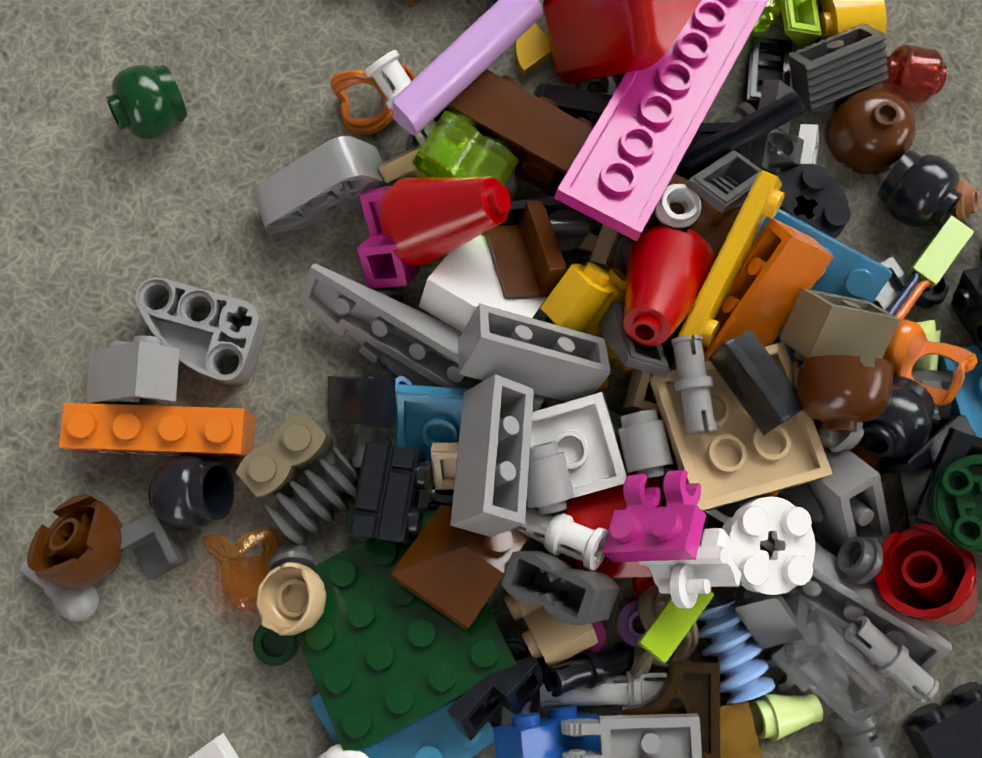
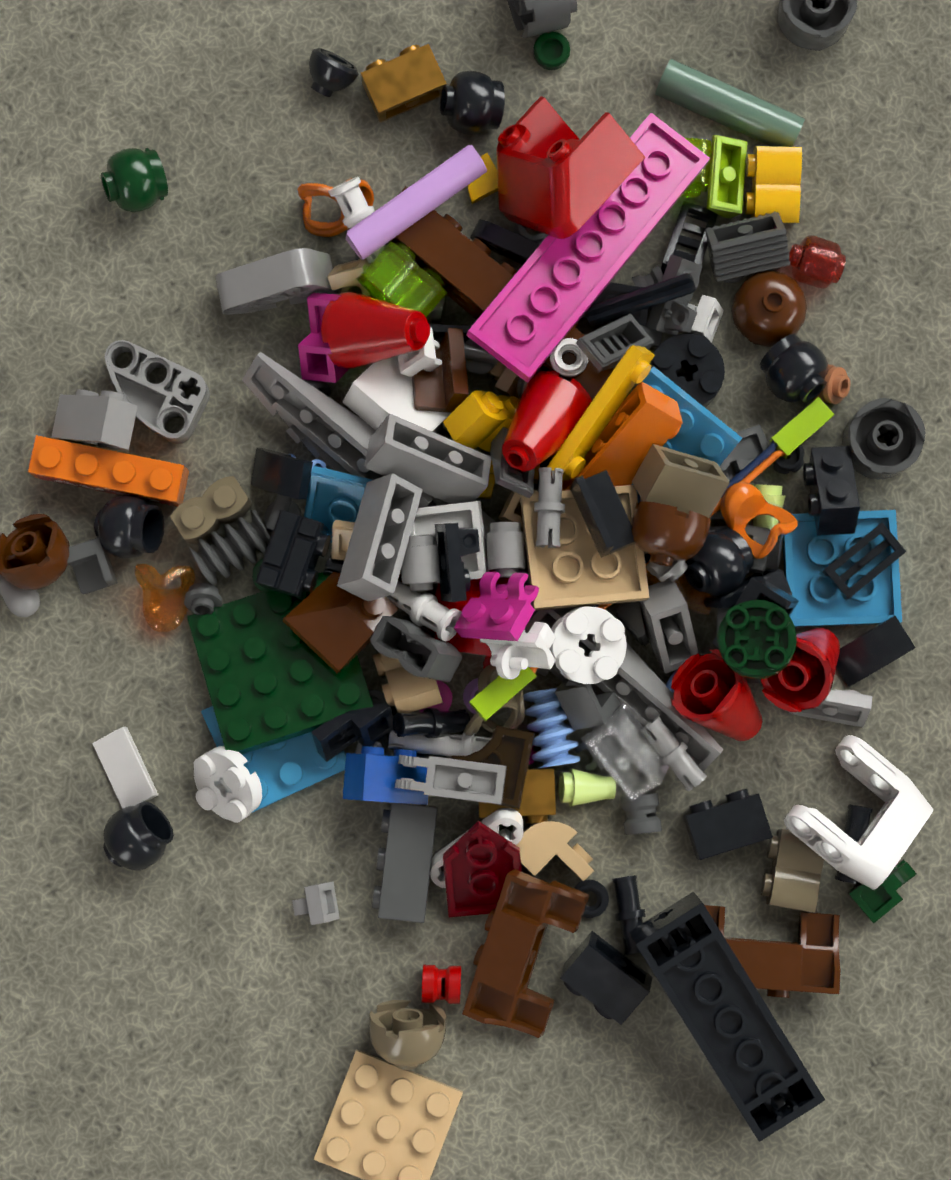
camera: 10 degrees right, 5 degrees up
(273, 648) = (180, 661): dark green tile -> none
(291, 599) = (200, 625): tan hair -> none
(500, 239) = (421, 359): none -> white tile
(582, 450) = (453, 544): none -> black hinge
(860, 559) = (663, 670): dark grey plate -> none

